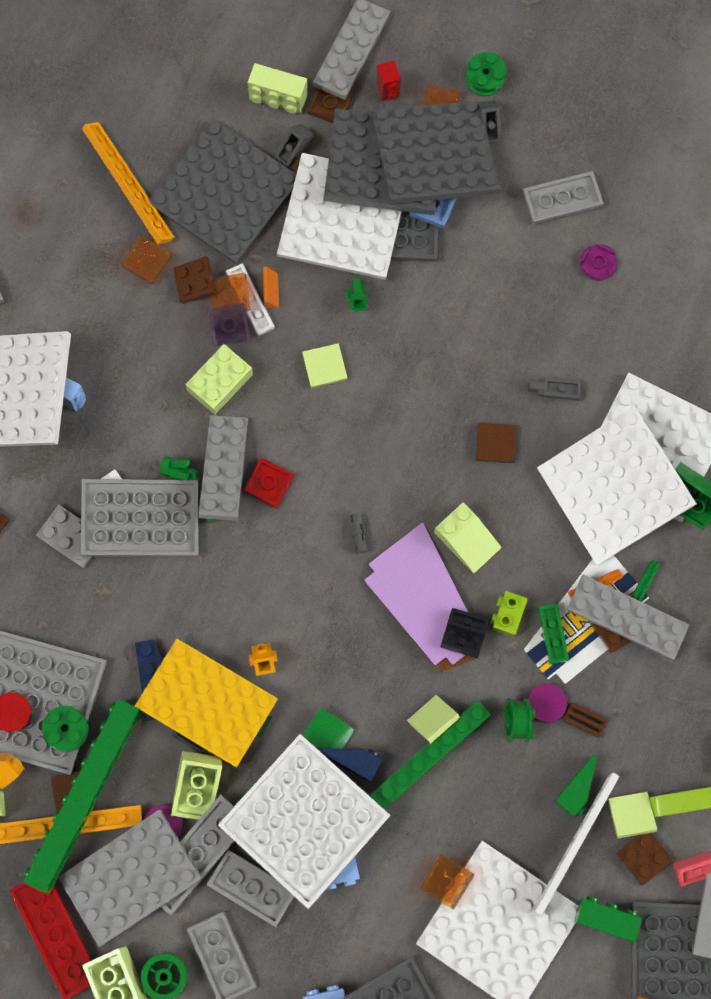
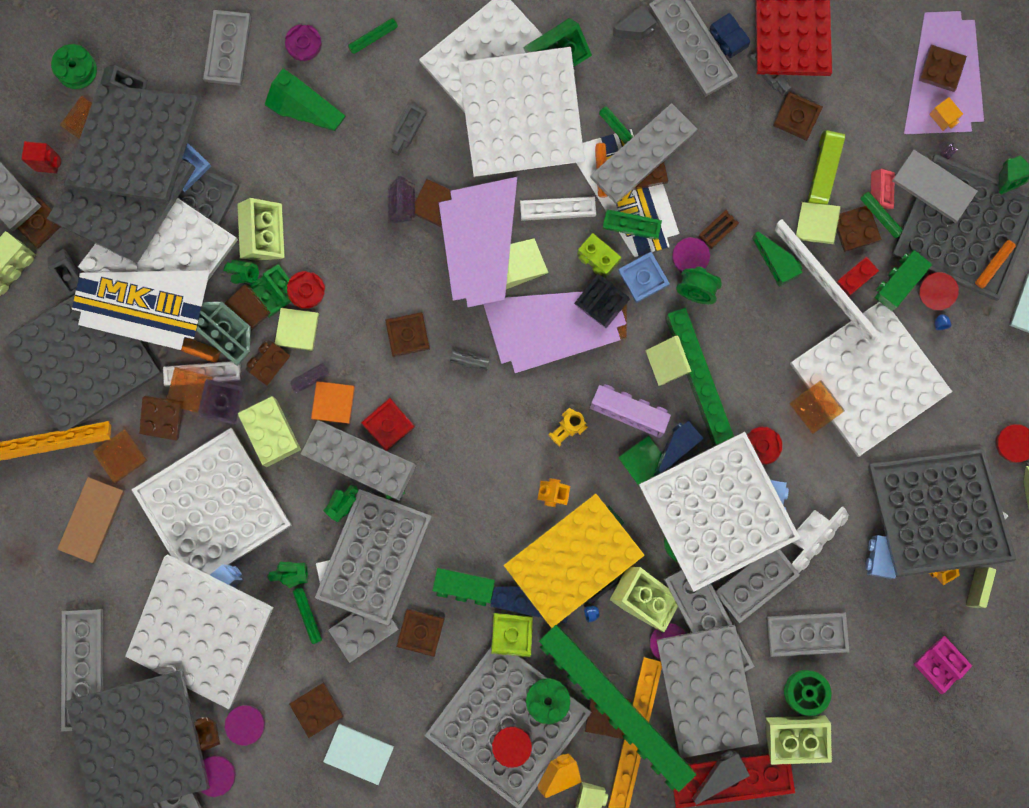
camera: 60 degrees left, 5 degrees up
(55, 922) = (723, 775): none -> dark grey slope
(64, 480) = (307, 615): none -> green axle
(80, 259) = (91, 520): none -> medium nougat tile
(87, 589) = (420, 632): none -> reddish brown tile
(96, 450) = (289, 573): none -> green rock
(115, 672) = (511, 635): none -> lime tile
(132, 357) = (212, 505): none -> white plate
(143, 610) = (463, 586): none -> green brick
(164, 740) = (591, 613): none -> blue hinge
(269, 425) = (333, 402): none -> orange tile
(282, 351) = (267, 362): none -> reddish brown bracket
(283, 395) = (309, 378): none -> clear purple slope
(289, 221) = (142, 305): none -> sticker
(296, 297) = (225, 330): none -> sand green wedge
(320, 927) = (815, 533): none -> white bracket
(322, 312) = (248, 306): none -> reddish brown tile
(329, 648) = (566, 426): none -> yellow connector
(351, 330) = (272, 289): none -> green slope
(360, 467) = (407, 334): none -> reddish brown tile
(364, 358) = (305, 289): none -> red tile
(370, 701) = (630, 411): none -> lavender slope
(389, 844) = (766, 444): none -> red tile
(403, 296) = (260, 230): none -> yellowish green slope
(475, 494) = (479, 240): none -> lavender sticker
(484, 411) = (401, 201): none -> clear purple slope
(506, 665) = (643, 277): none -> medium blue plate
(539, 279) = (296, 100): none -> green wedge
(540, 558) = (558, 208): none -> white tile
(584, 979) = (942, 322): none -> blue hinge
(592, 873) = (857, 276): none -> red brick
(614, 962) = (938, 291): none -> red tile
(632, 322) = (372, 36): none -> green axle
(667, 875) = (881, 214): none -> green axle

